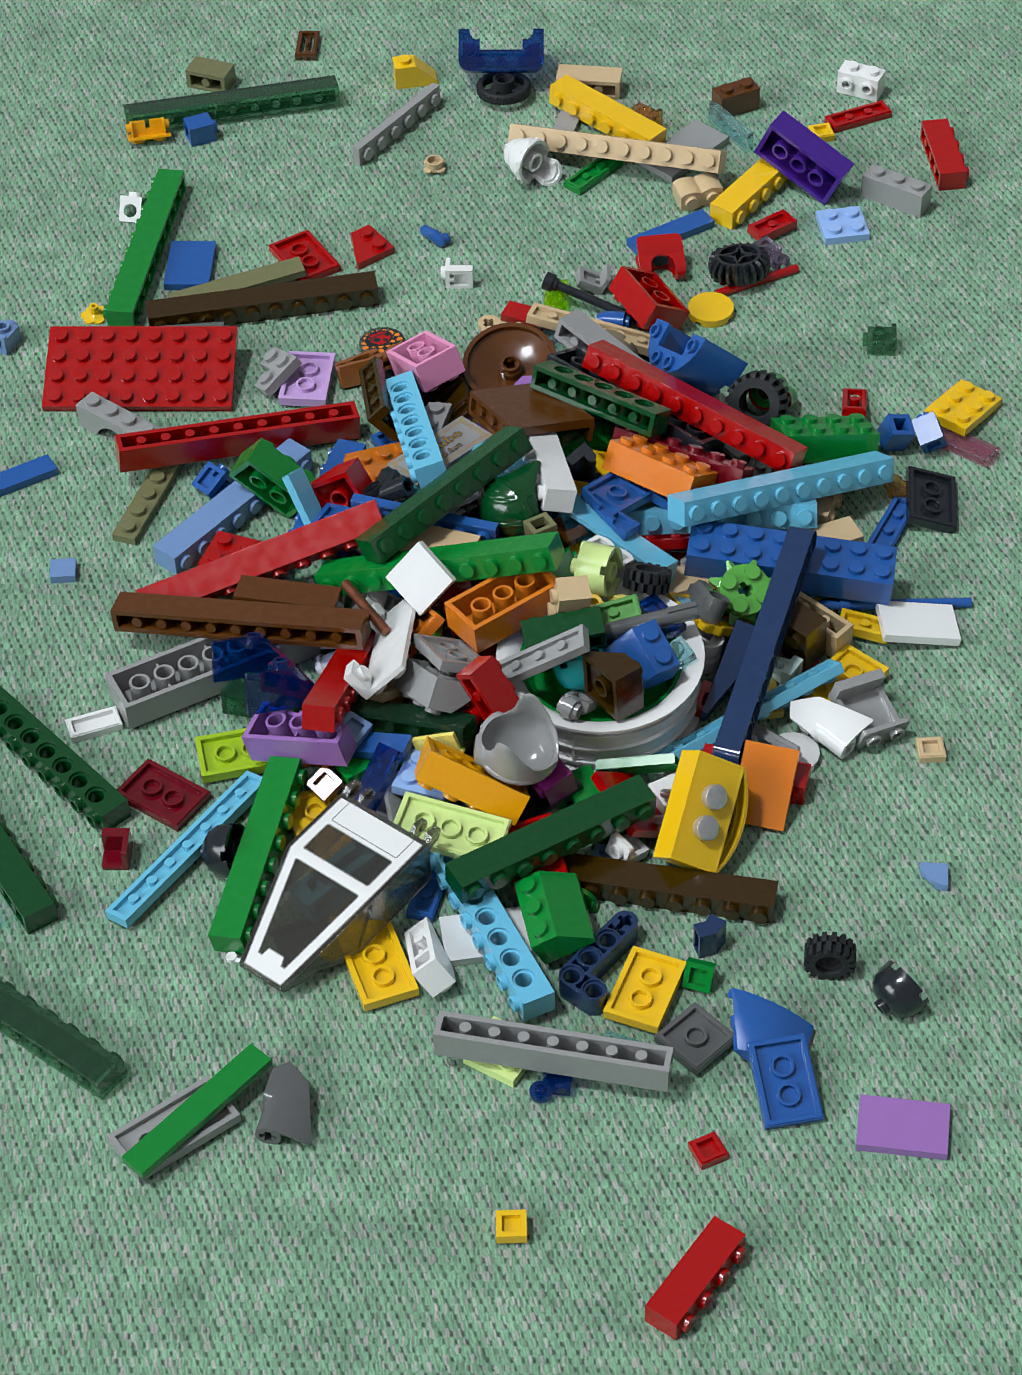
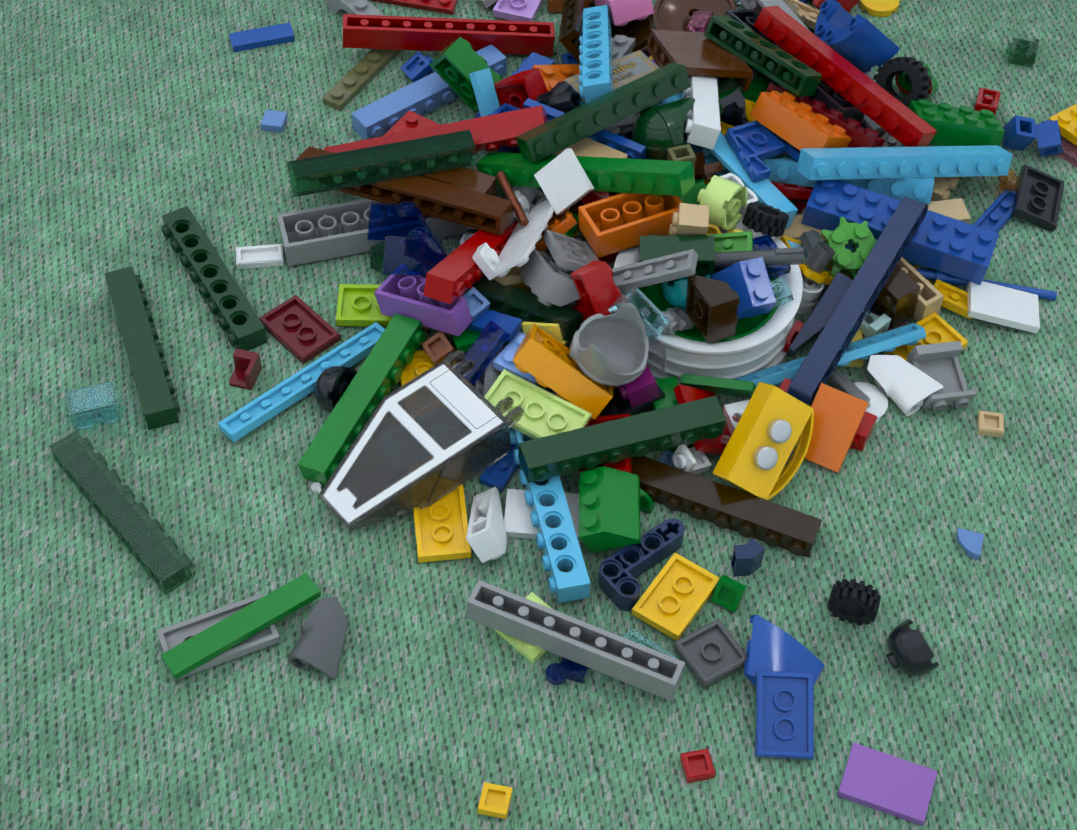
camera: 10 degrees right, 5 degrees up
(211, 595) = (382, 163): none -> clear green brick
(519, 370) = (699, 21): none -> clear pink tile
(555, 705) = (651, 316): none -> clear light blue brick

